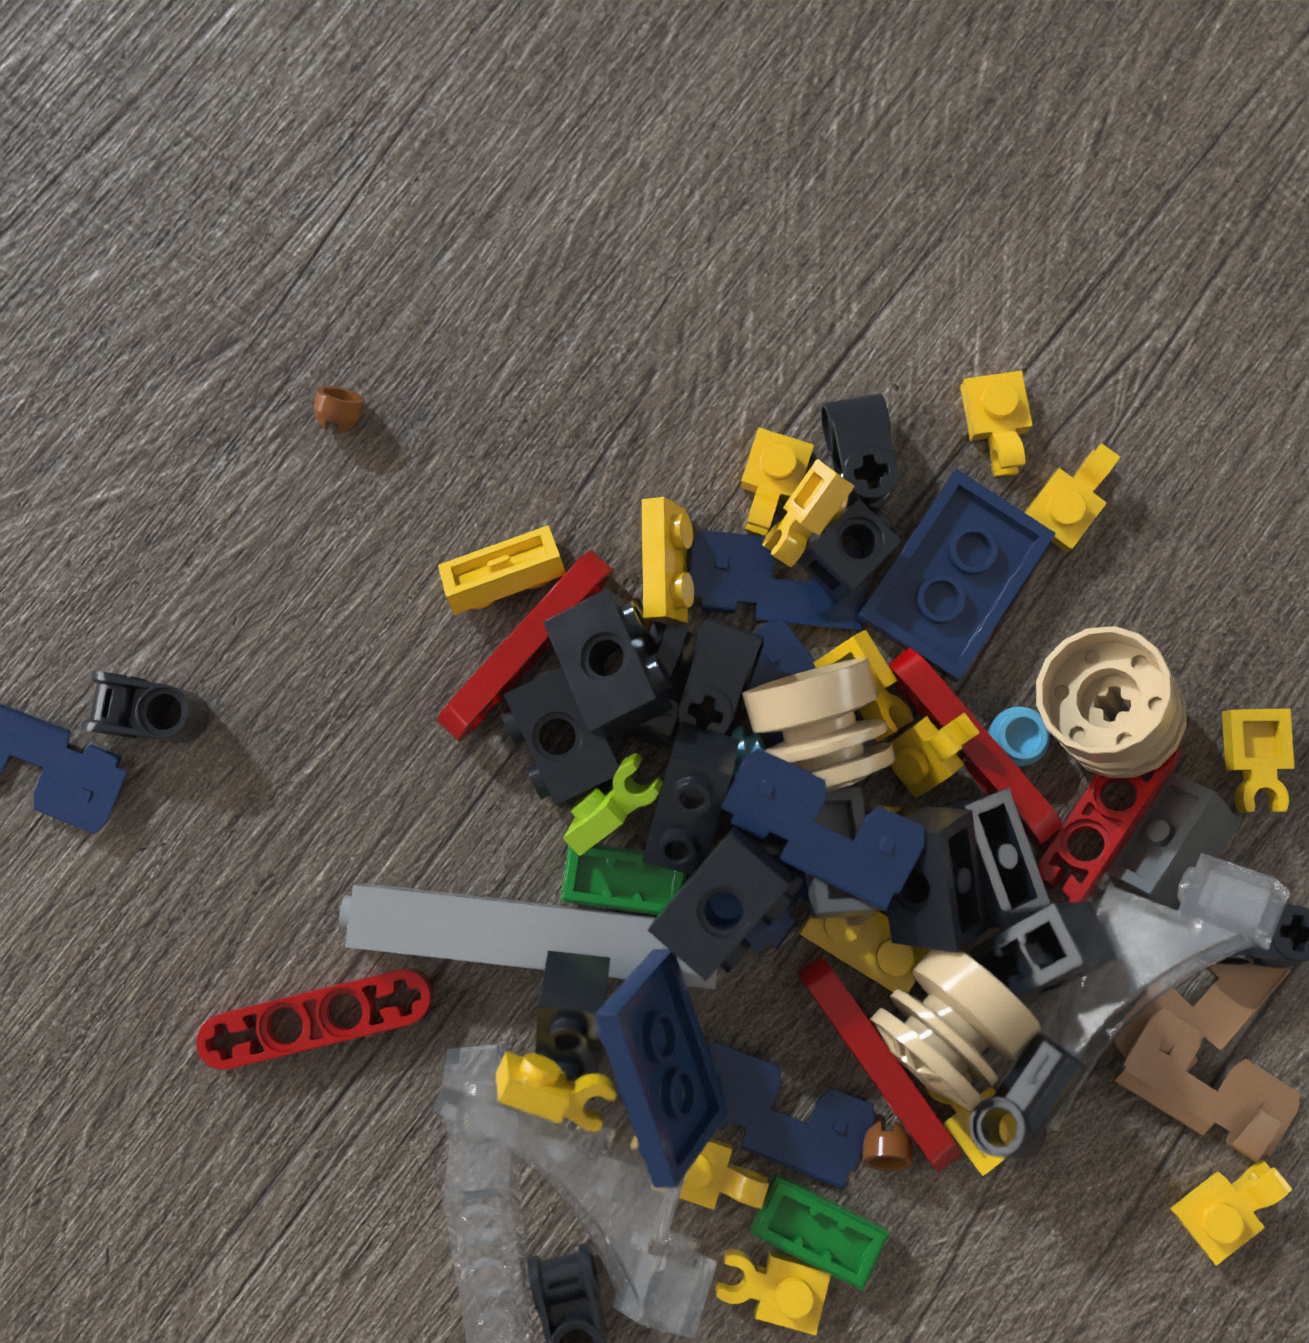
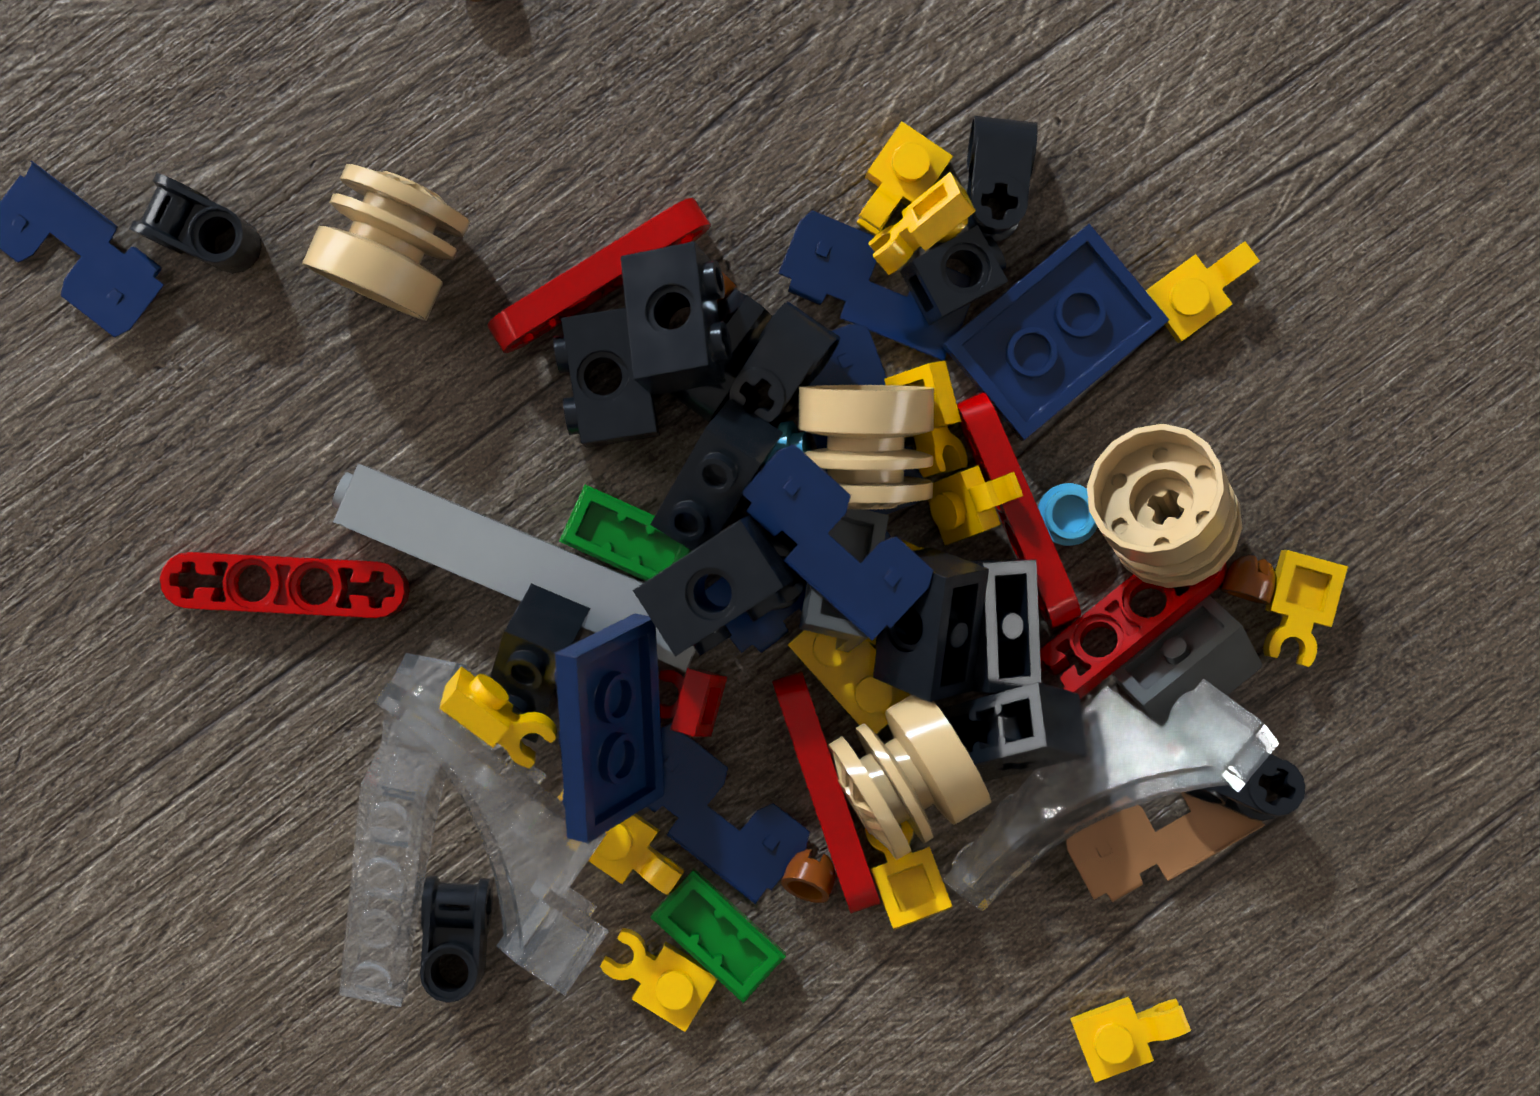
camera: 15 degrees right, 5 degrees up
(322, 670) = (387, 240): none -> tan wheel
(501, 570) = (596, 191): yellow plate -> none
(603, 812) = (625, 464): lime plate -> none
(665, 541) = (760, 246): yellow plate -> none
(733, 1013) = (697, 701): none -> red tile
(998, 412) = (1153, 178): yellow plate -> none
(1032, 1094) = (959, 861): black piece -> none
(1204, 746) = (1250, 579): none -> dark orange hinge
(1238, 1105) = (1168, 939): medium nougat piece -> none

